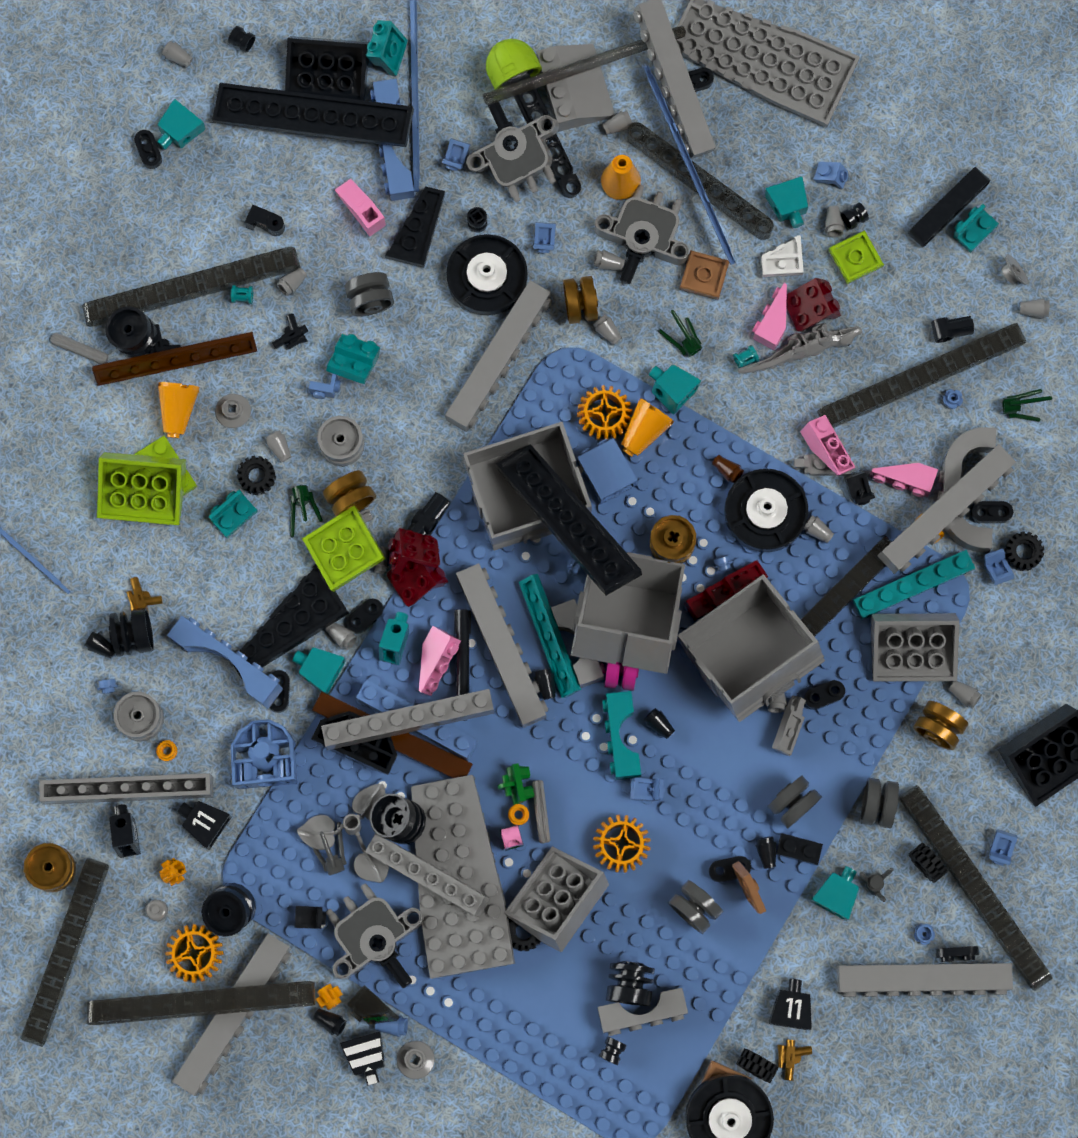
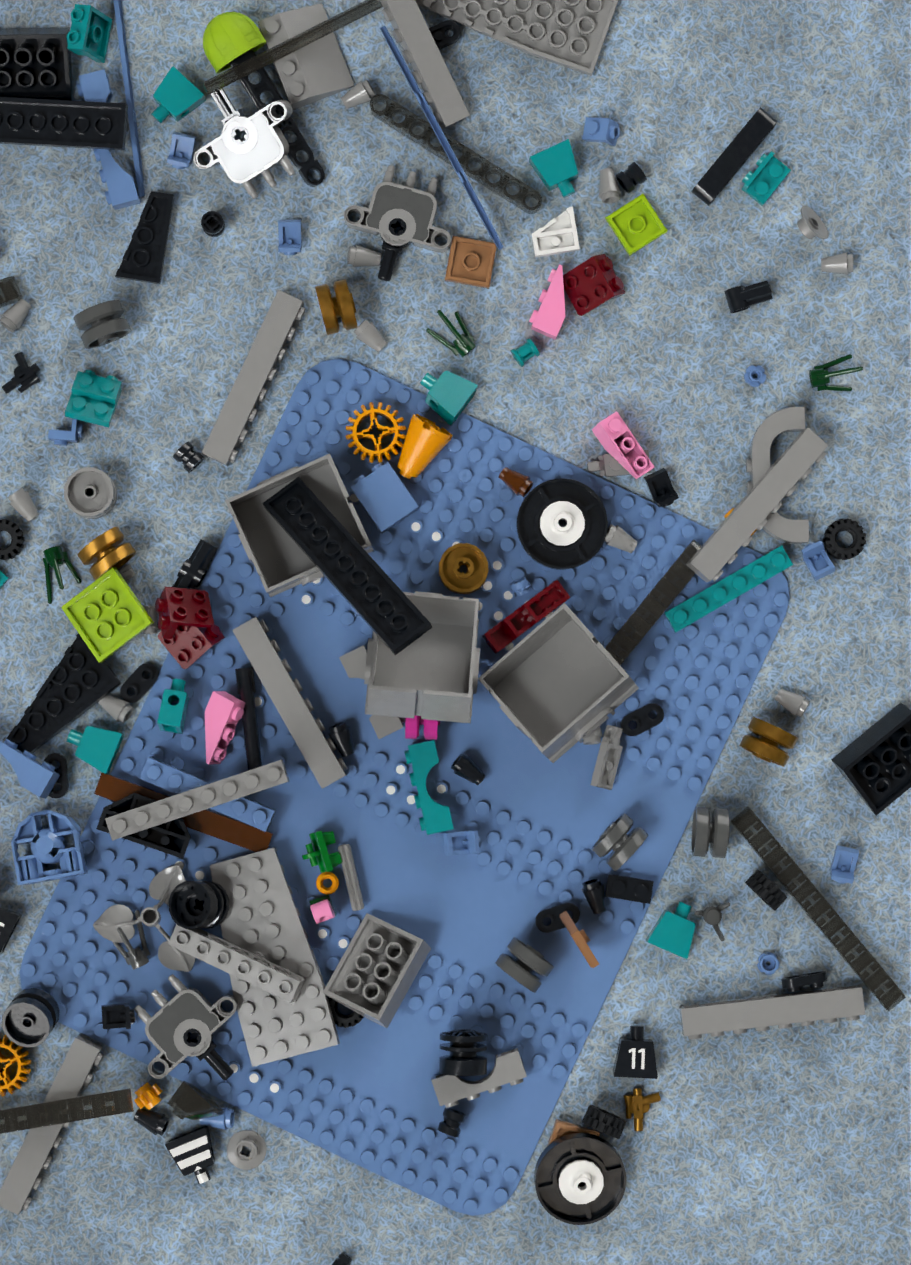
camera: 15 degrees left, 10 degrees up
(361, 207) = (81, 221): bright pink slope -> none
(432, 418) = (189, 457): none -> black wheel
(457, 109) = (176, 97): none -> teal torso
(486, 274) = (233, 307): black piece -> none
(549, 635) = (340, 686): teal plate -> none
(612, 842) = (441, 888): light orange gear -> none
(620, 178) = (367, 160): light orange cone -> none
(805, 345) = (589, 332): light grey animal -> none
(912, 477) = (717, 469): bright pink slope -> none
(915, 647) = (734, 658): light grey slope -> none
(923, 375) = (720, 353): clear smoke beam -> none
(991, 512) = (806, 500): black plate -> none

